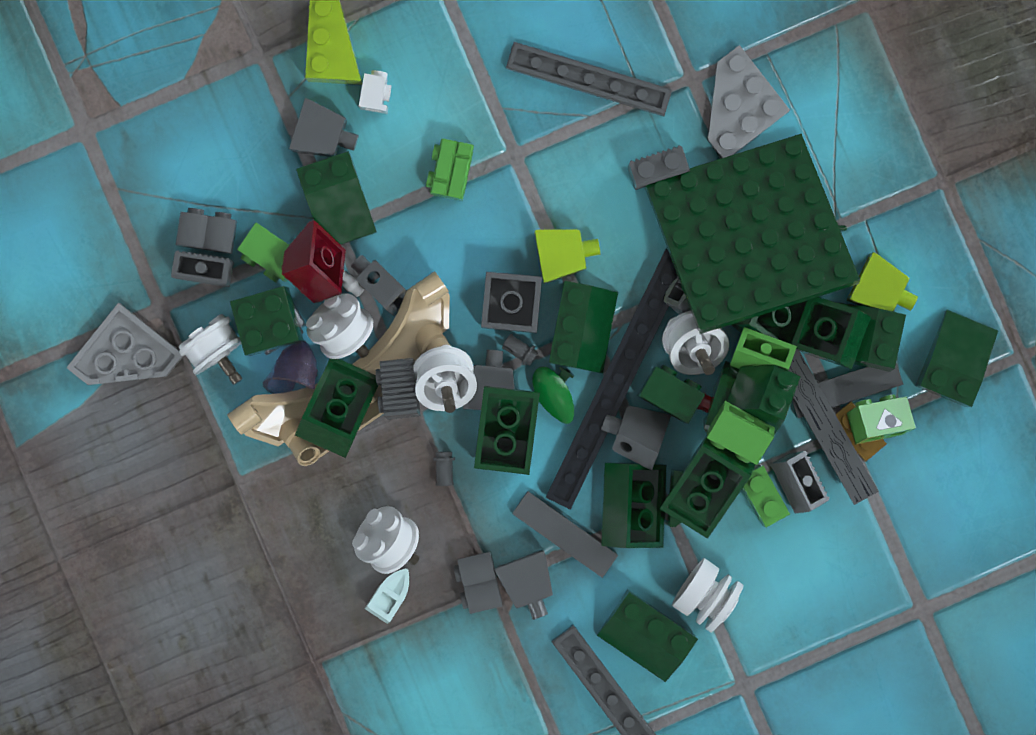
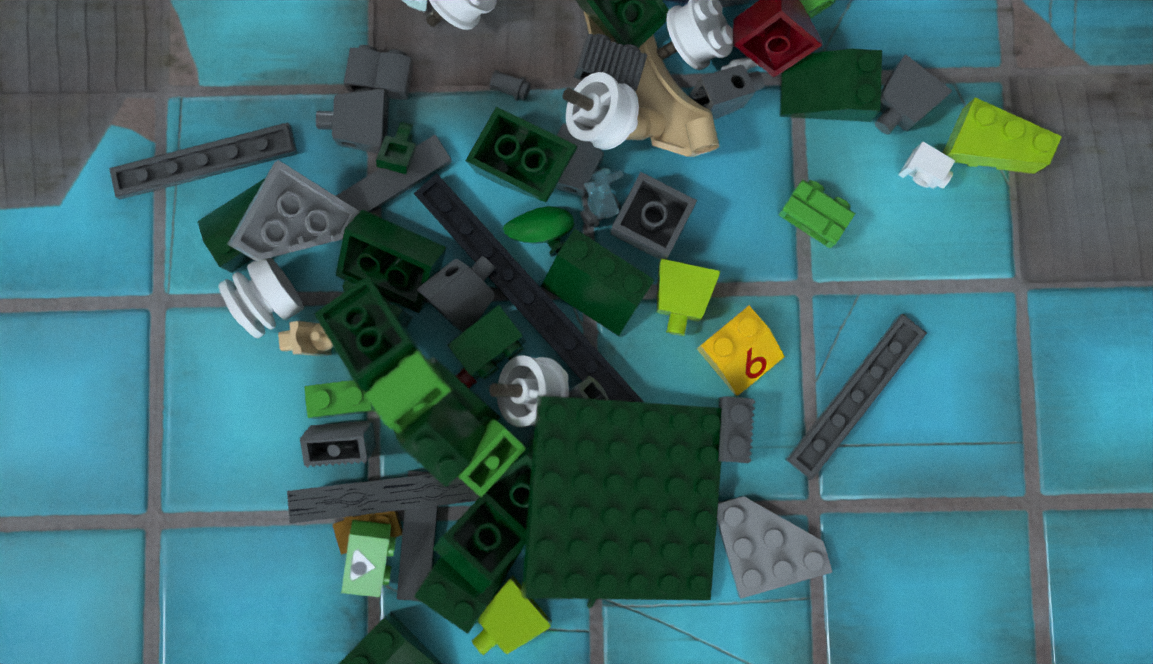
camera: 115 degrees right, 5 degrees down
(515, 351) = (600, 196): none -> clear light blue bracket
(541, 536) = (397, 152): none -> dark green plate
(590, 187) = (742, 350): none -> yellow slope
(635, 594) = (290, 216): none -> light grey plate
(727, 542) = (305, 339): none -> tan hips

